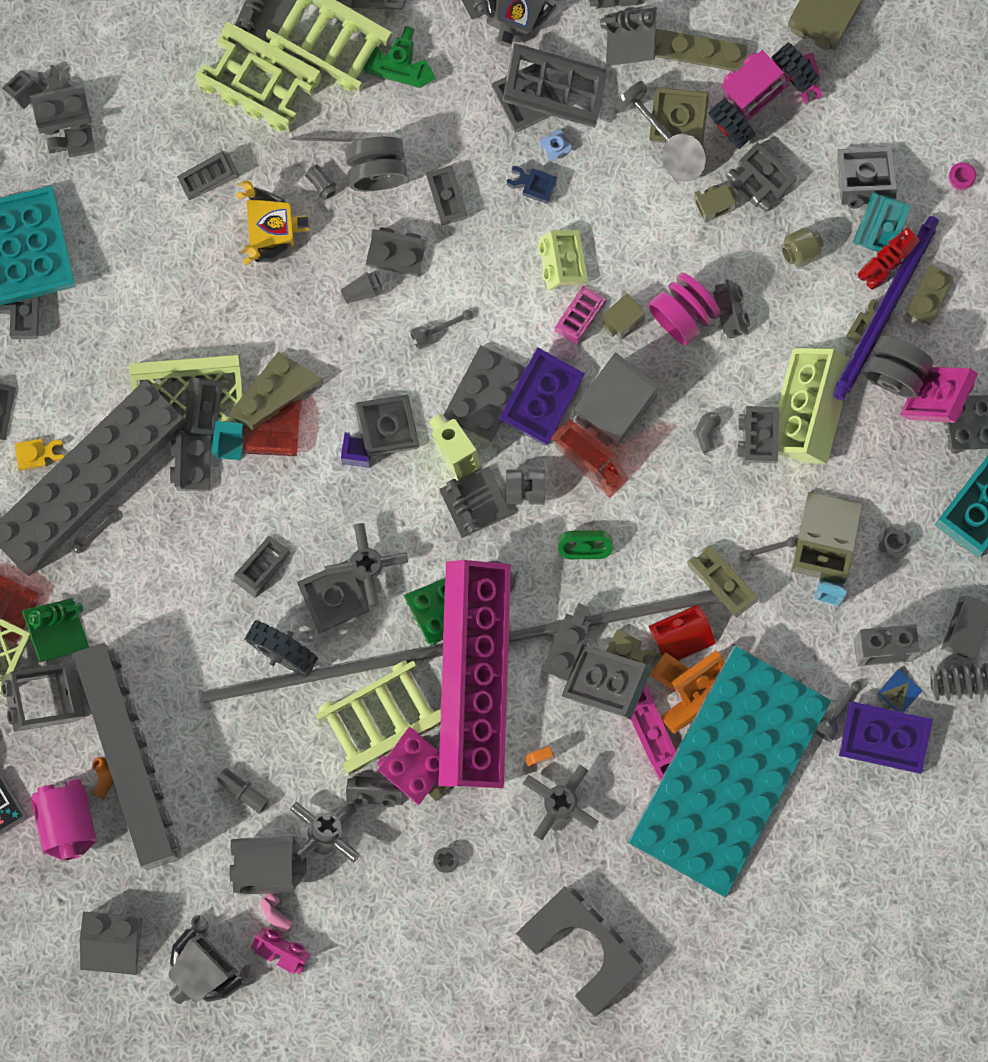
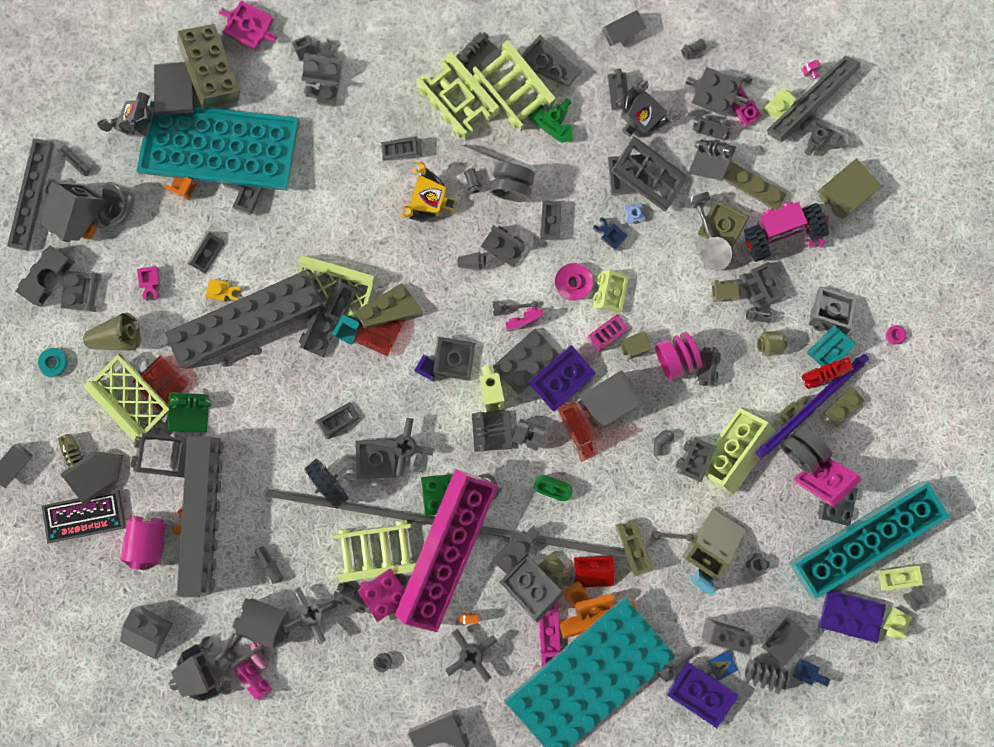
camera: 20 degrees right, 5 degrees up
(234, 931) = (227, 655): none -> dark grey plant
(468, 332) = (530, 317): none -> dark pink slope
(508, 251) = (576, 272): none -> dark pink dish
(771, 218) = (758, 315): none -> dark grey pin

